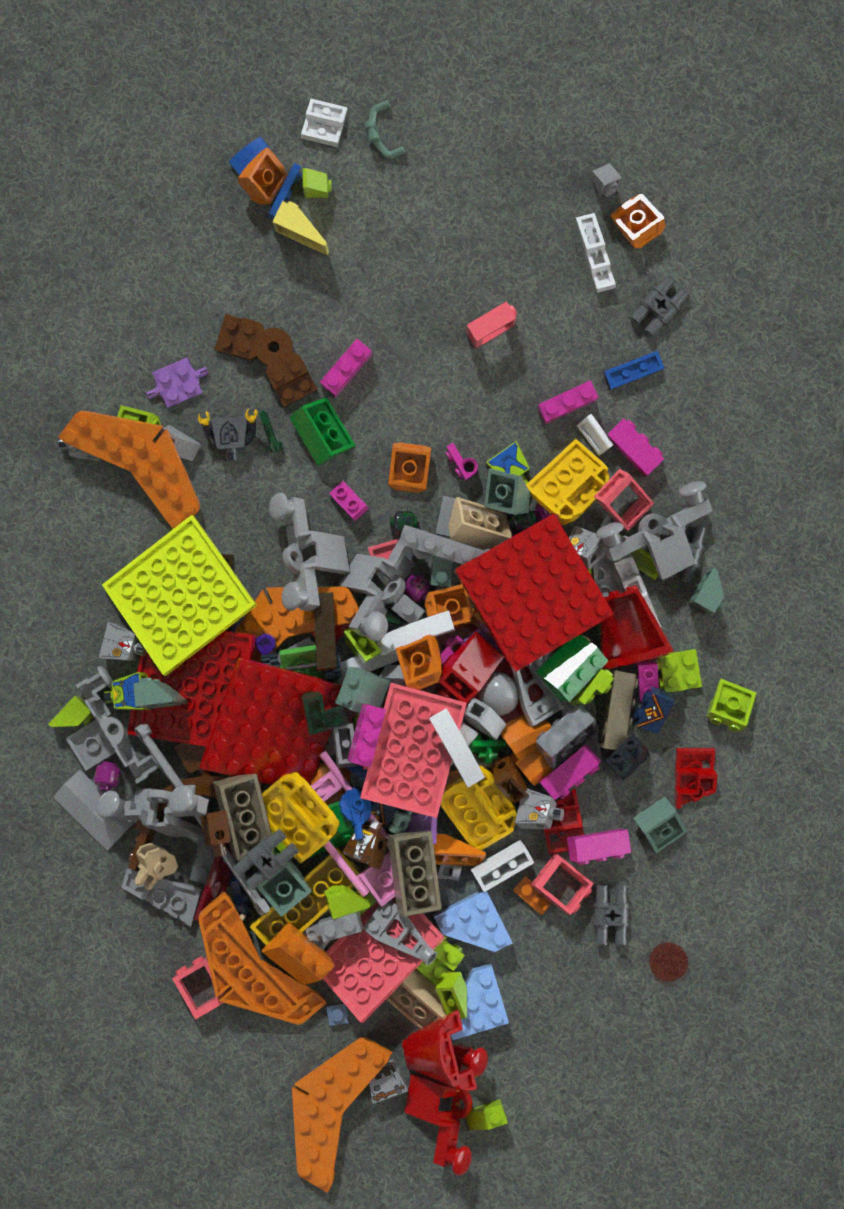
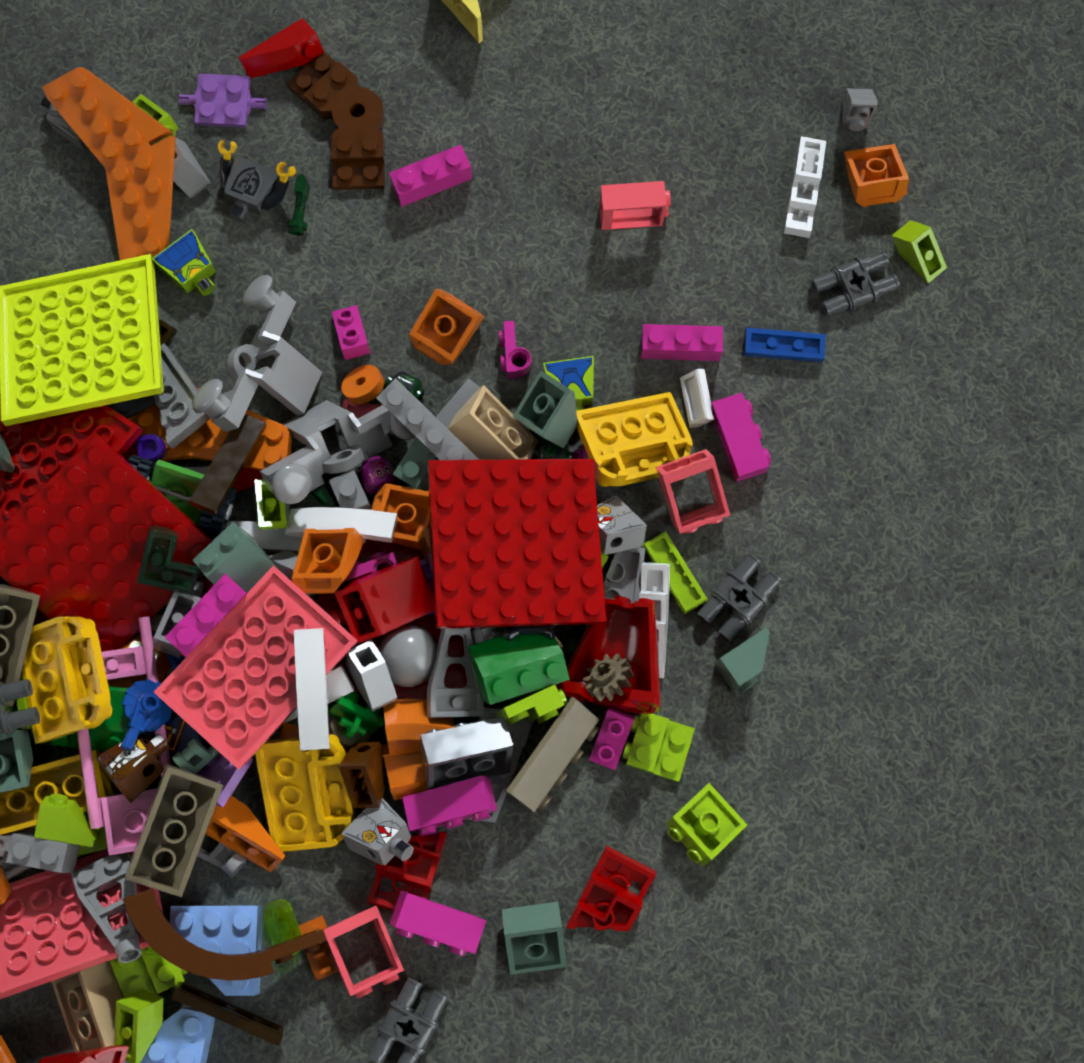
camera: 25 degrees right, 10 degrees down
(202, 326) = (283, 51): none -> red slope
(218, 508) = (187, 264): none -> torso
(269, 604) = (177, 400): none -> light grey wing
(321, 431) = (362, 234): green slope -> none
(383, 532) = (362, 384): none -> orange piece
(441, 937) = (169, 944): none -> reddish brown arch
(501, 960) = (228, 1013): none -> dark brown tile
(502, 865) = (296, 885): white brick -> none
(506, 895) = (285, 924): none -> clear neon green plate
(580, 638) = (514, 631): none -> black piece
(628, 757) = (534, 823): black plate -> none
(630, 646) = (608, 677): none -> dark tan gear
(654, 709) = (600, 777): dark blue brick -> none
(671, 553) = (718, 585): light grey piece -> none
(691, 260) = (920, 249): none -> lime slope

